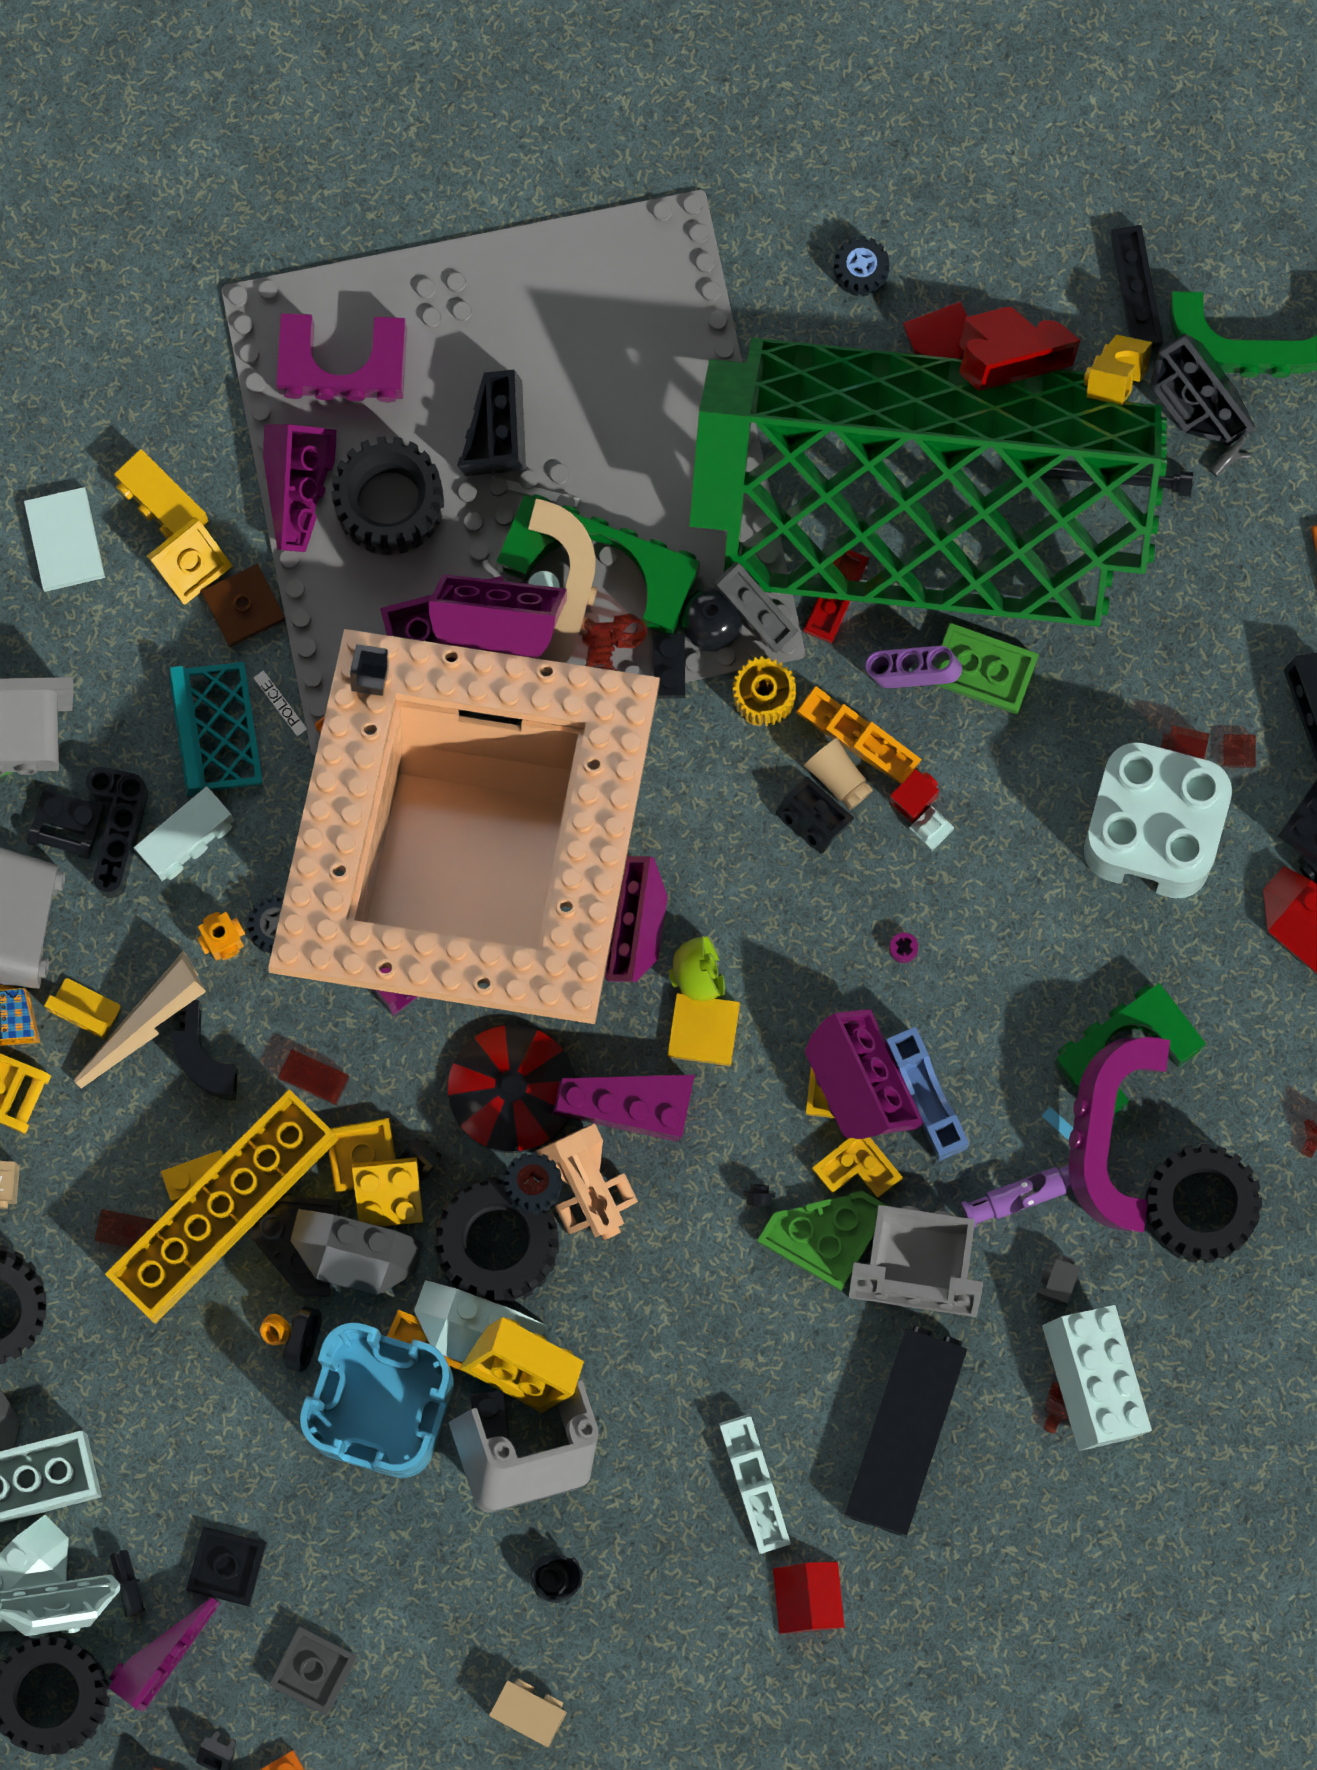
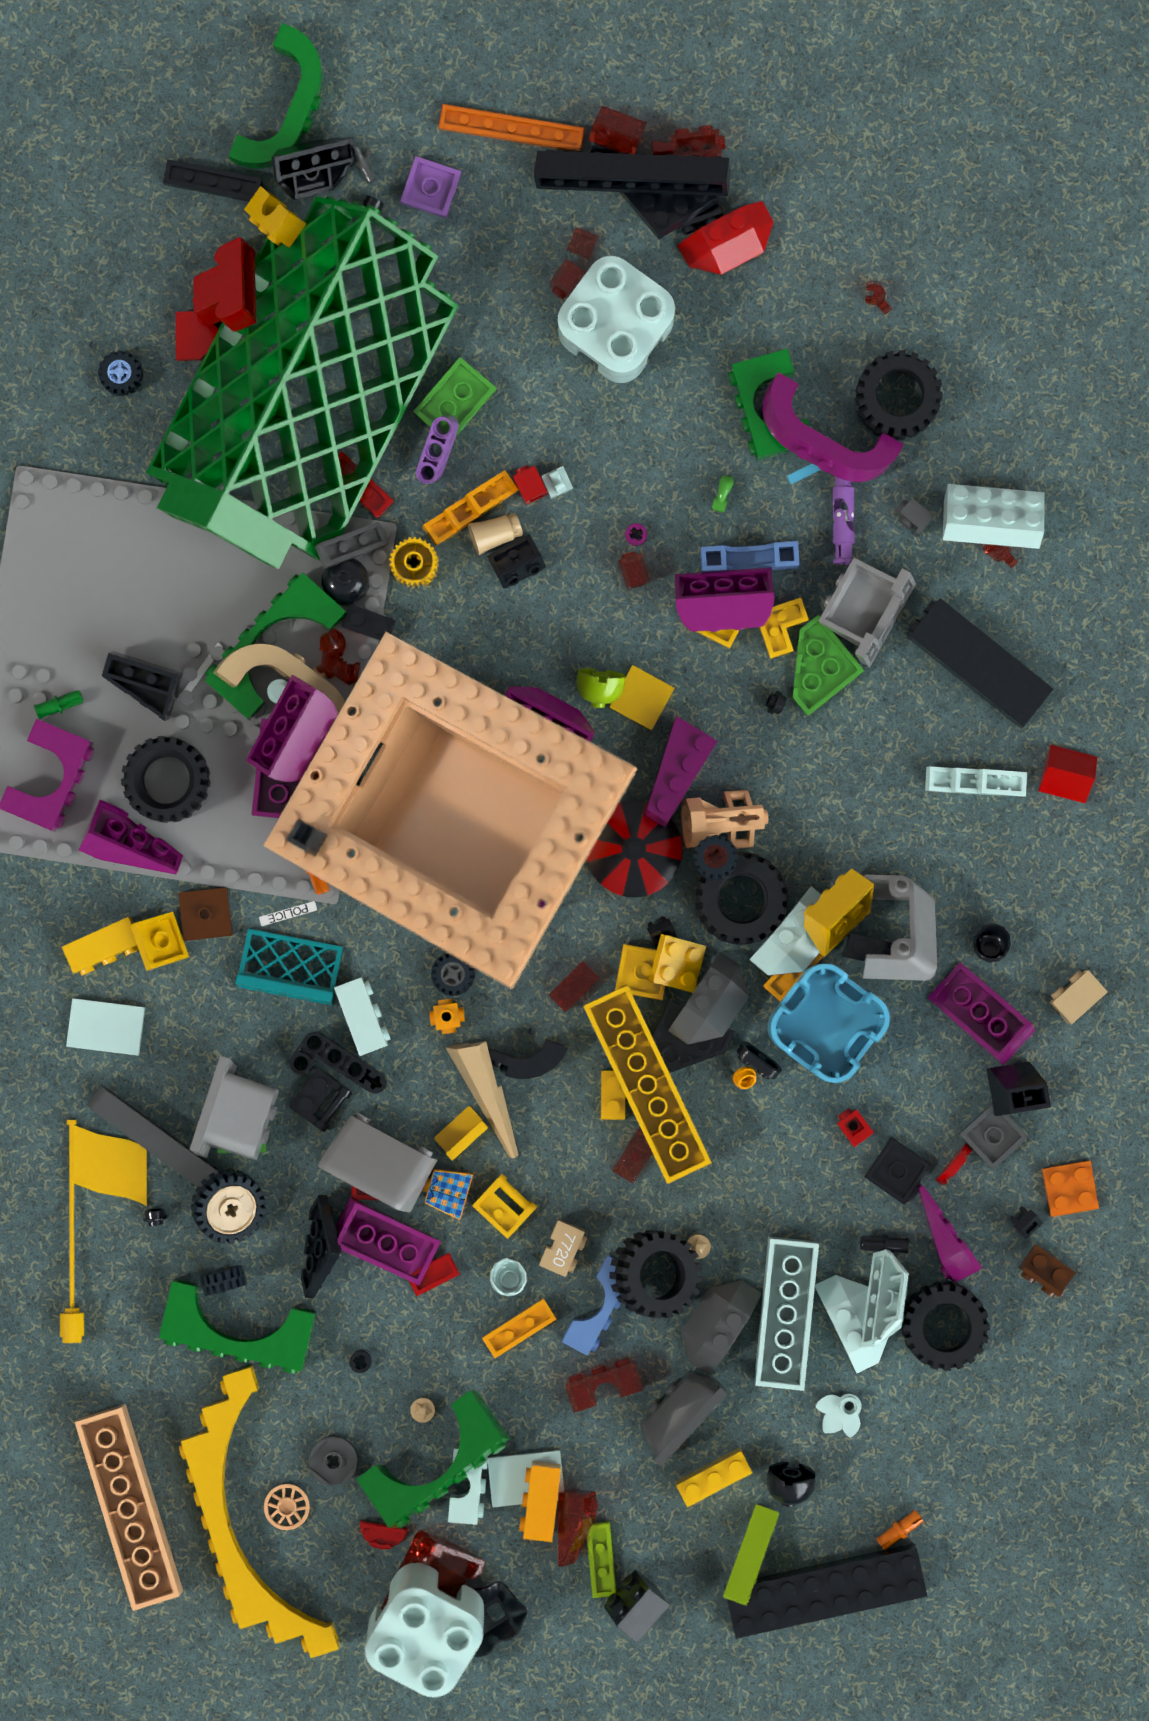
camera: 75 degrees left, 10 degrees up
(45, 1351) = (700, 1244): none -> tan tile
(249, 1490) = (862, 1131): none -> red brick
(259, 1635) = (954, 1164): none -> red tile
(381, 1676) = (1017, 1089): none -> black slope
(433, 340) = (58, 704): none -> green axle
(461, 1599) = (982, 1013): none -> magenta slope
(856, 959) = (633, 570): none -> clear red brick
(984, 1034) = (725, 486): none -> bright green arm
(1233, 544) = (430, 187): none -> medium lavender plate

